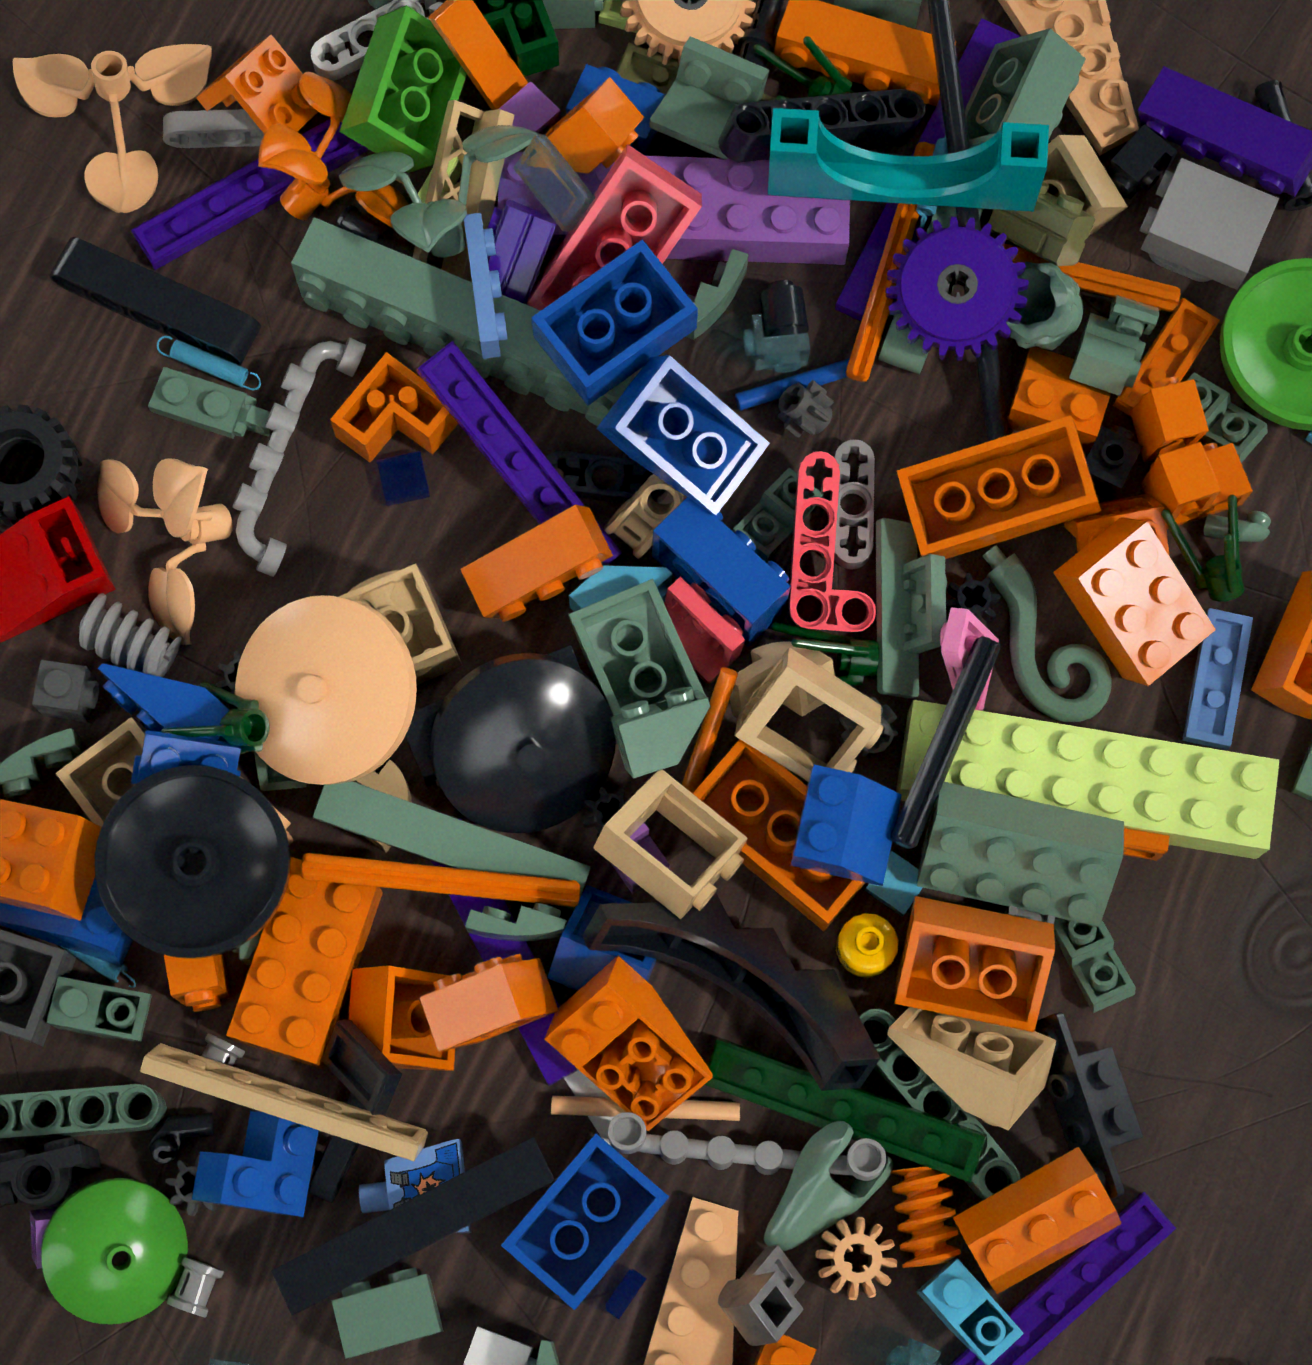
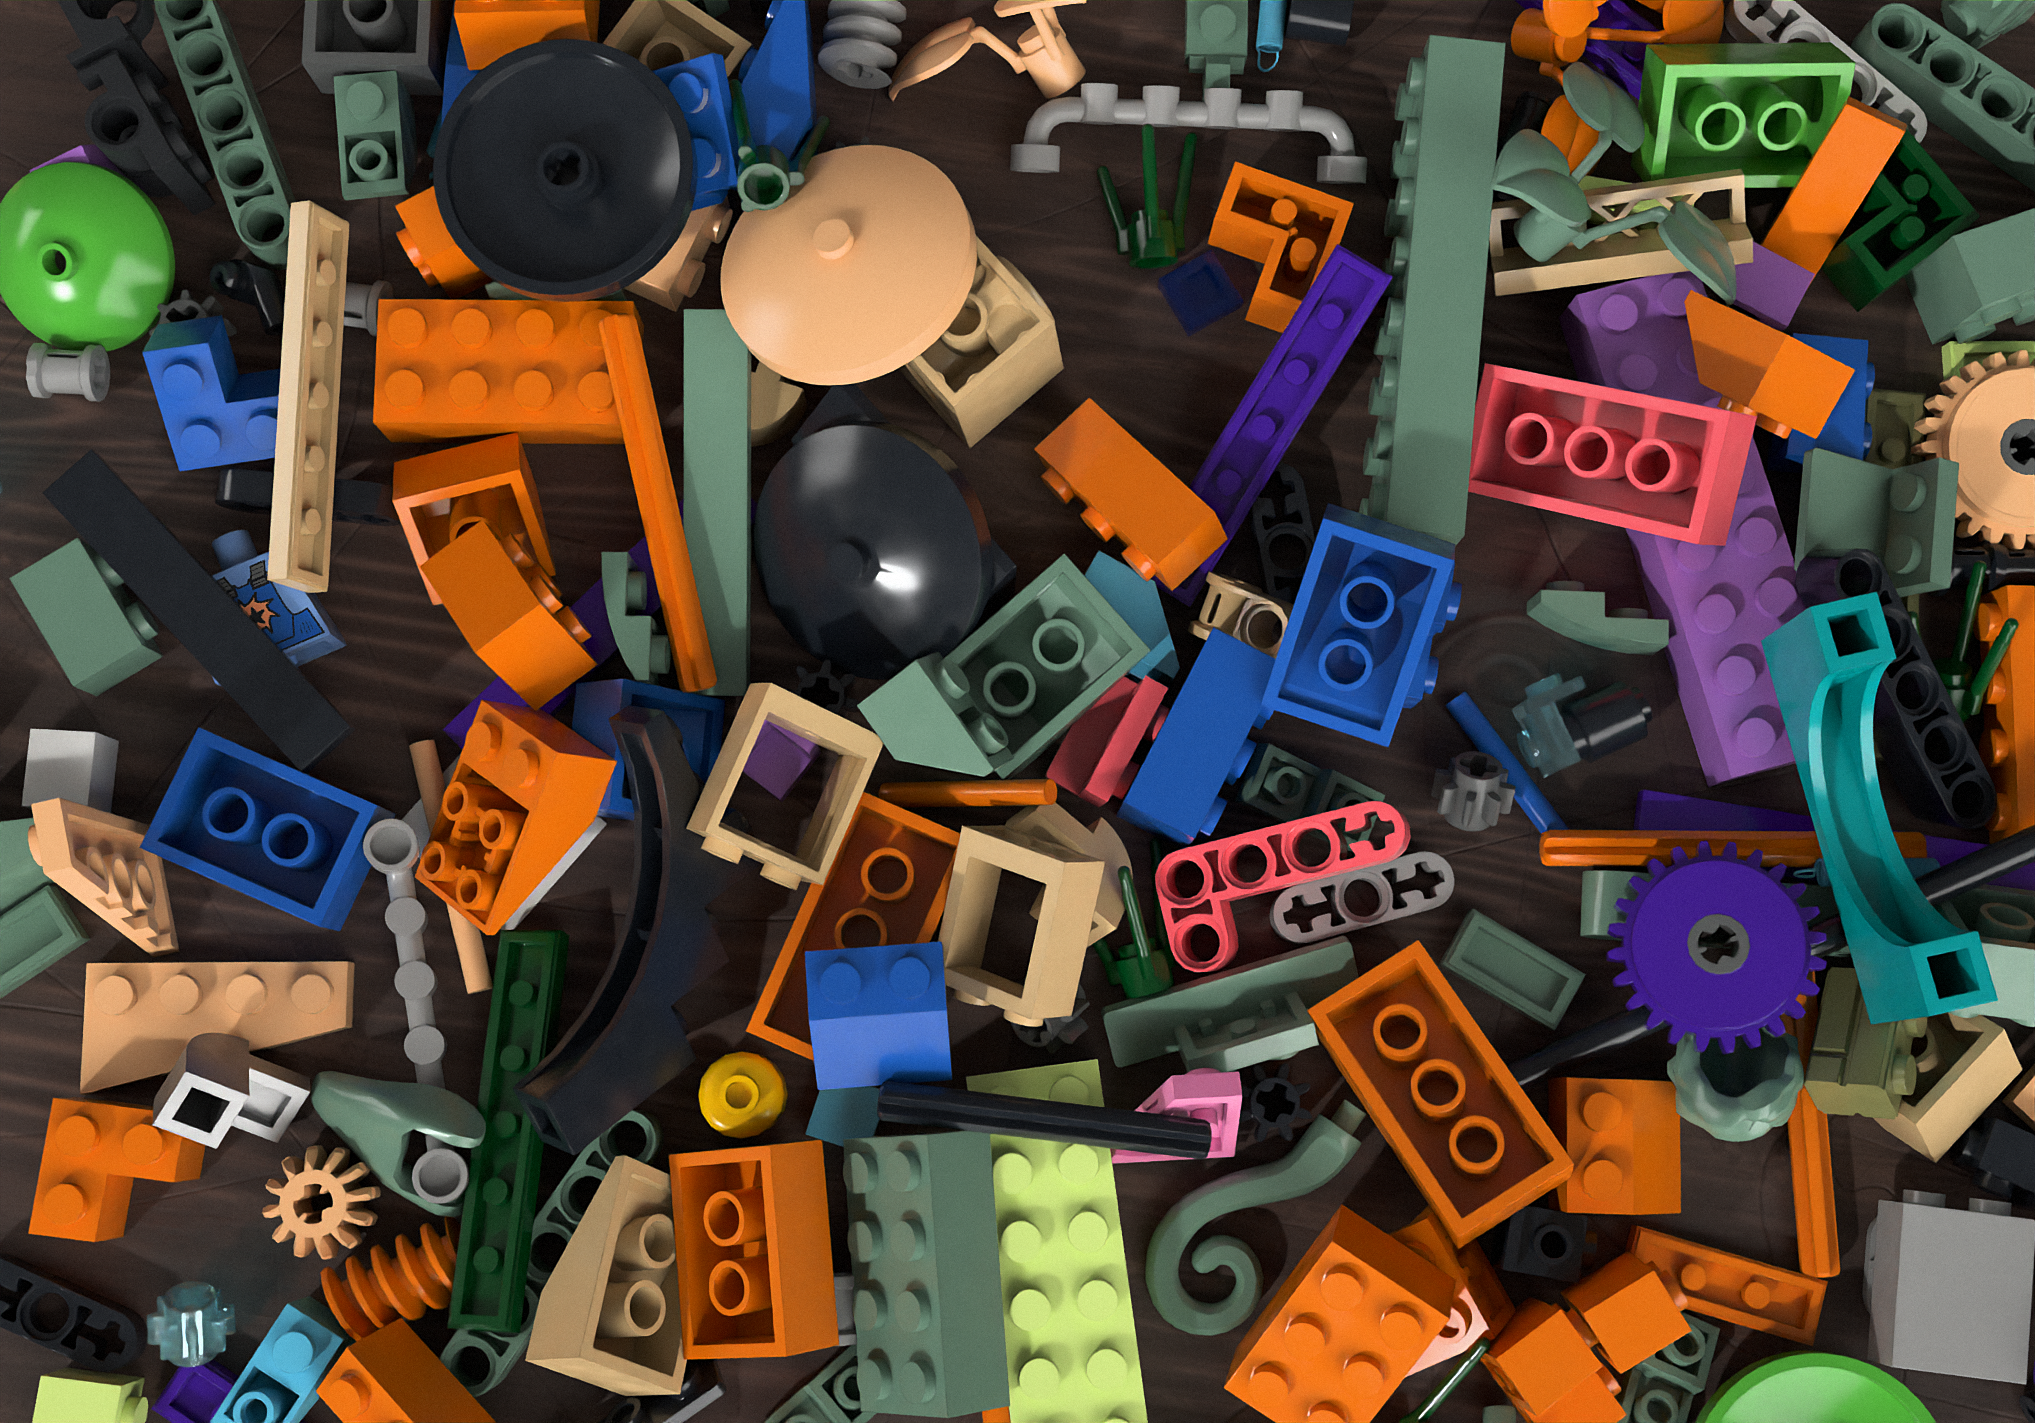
camera: 70 degrees right, 5 degrees up
(353, 494) = (1152, 237): none -> dark green plant
(361, 1067) = (380, 479): black tile -> none
(485, 285) = (1481, 289): medium blue plate -> none
(520, 247) = (1554, 324): dark purple brick -> none
(554, 182) = (1666, 338): clear light blue tile -> none
(575, 1331) = (104, 868): none -> light nougat wing
(614, 322) = (1486, 478): blue brick -> none
(625, 1293) = (196, 910): clear blue tile -> none
(928, 425) = (1511, 969): none -> sand green tile
(1106, 356) = (1697, 1195): sand green brick -> none
(1132, 316) = (1767, 1215): sand green slope -> none

